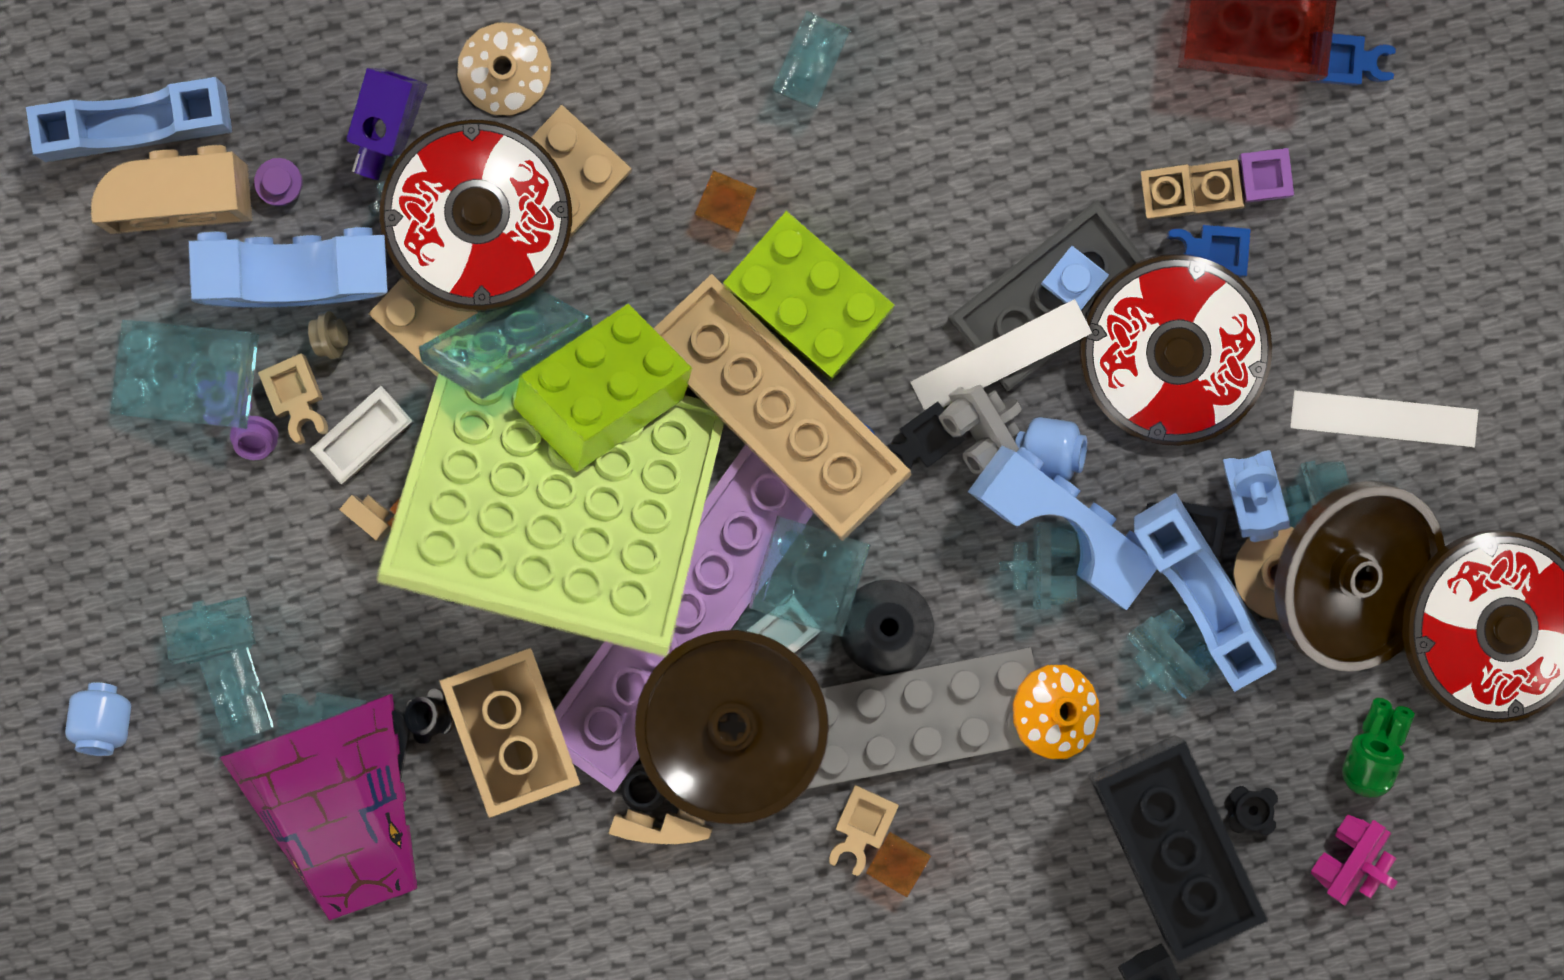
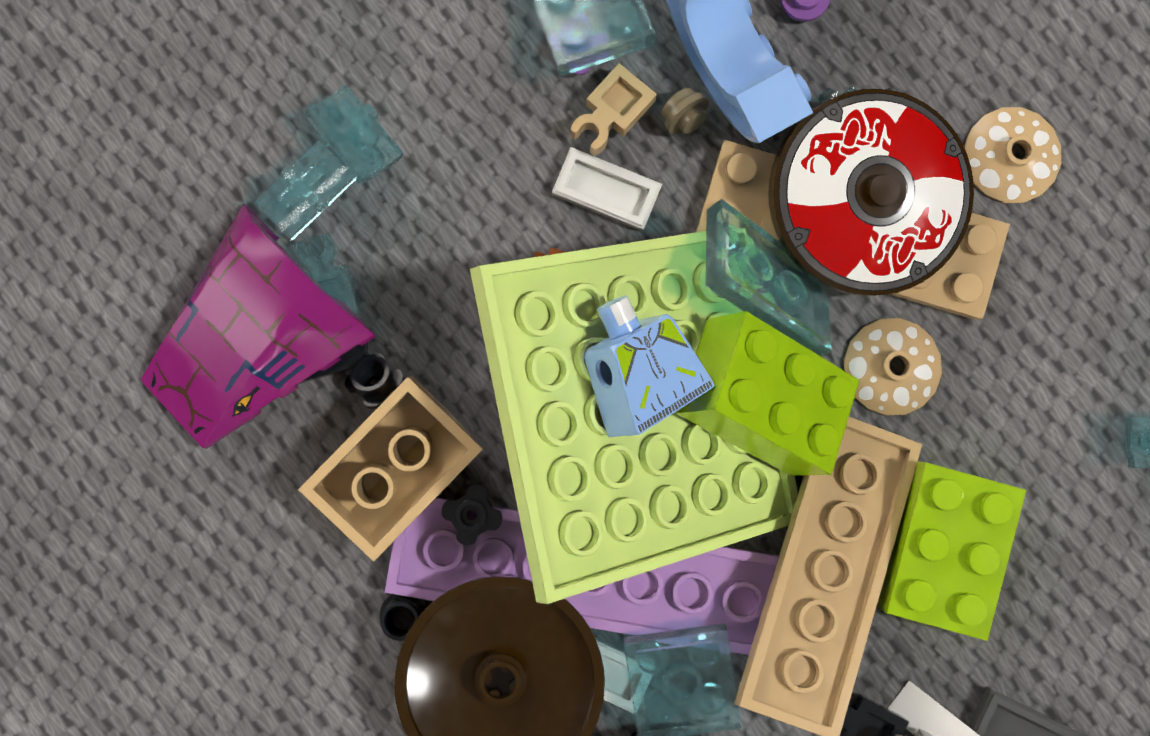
camera: 60 degrees right, 0 degrees up
(98, 720) = (222, 73): light blue head -> none
(256, 440) = (555, 92): medium lavender plate -> none
(368, 515) = (534, 231): tan plate -> none
(395, 102) = (939, 56): dark purple torso -> none
(524, 483) = (642, 370): none -> light blue torso
(572, 675) = (475, 500): none -> black plate
(639, 287) = (869, 361): none -> tan dish
(676, 828) = (373, 666): tan slope -> none
(726, 202) = (995, 424): clear orange plate -> none

